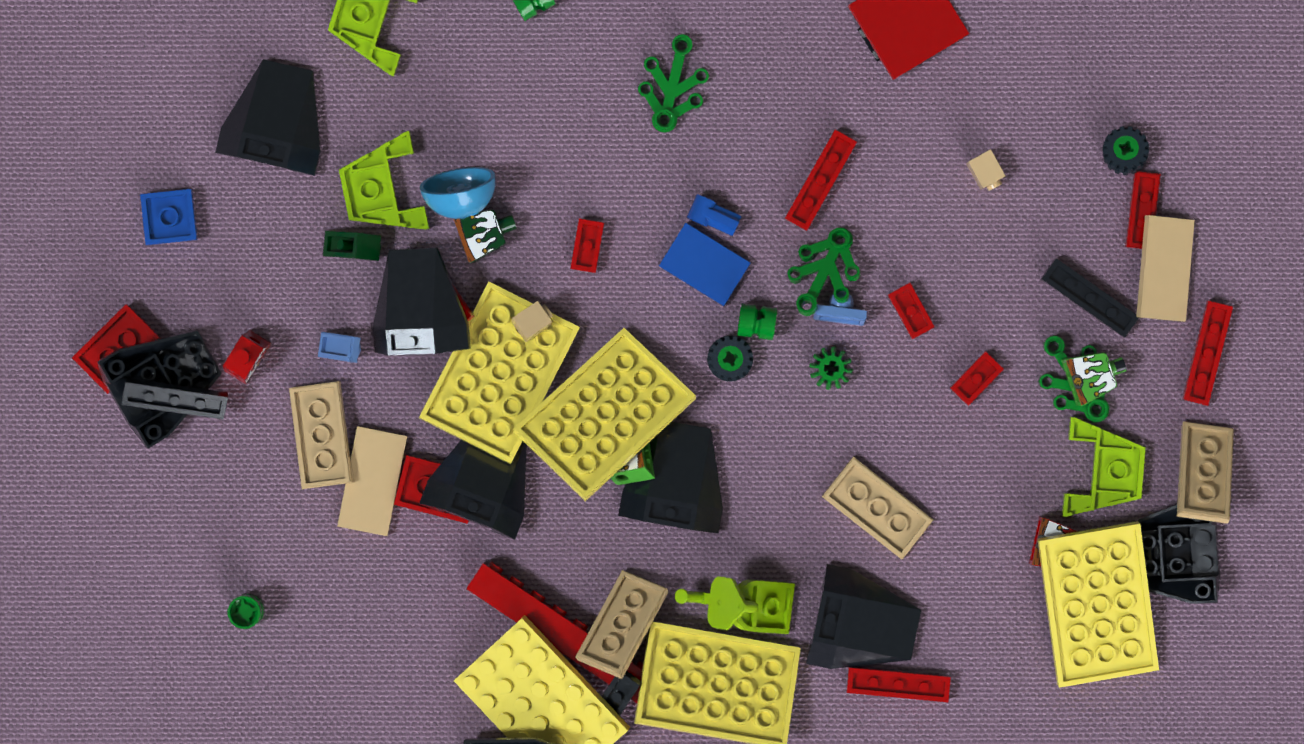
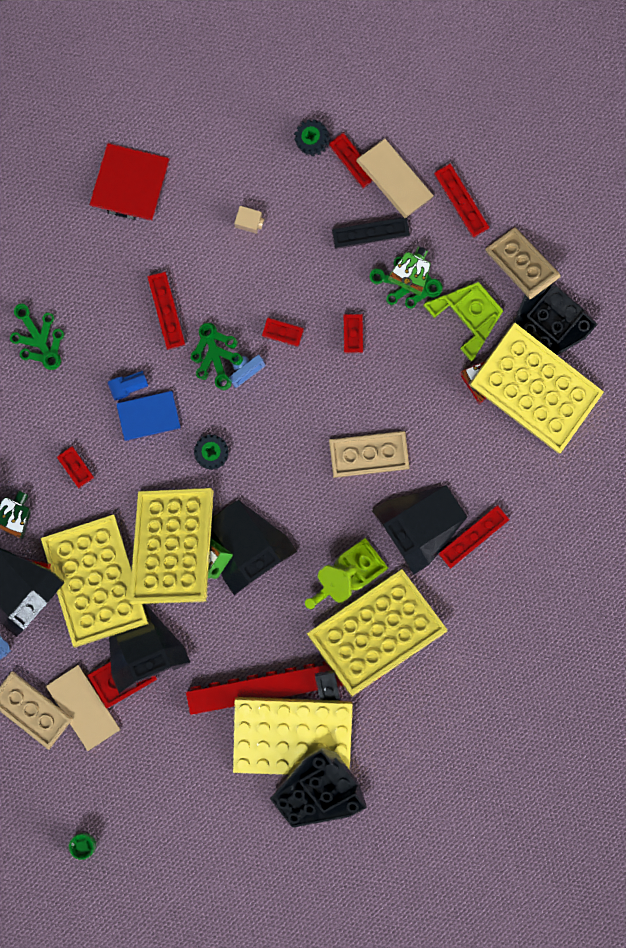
camera: 40 degrees left, 5 degrees down
(532, 321) = (84, 535): tan brick -> none
(622, 624) = (293, 650): tan tile -> none
(757, 321) = (206, 418): green wheel -> none
(835, 375) = (263, 403): green gear -> none

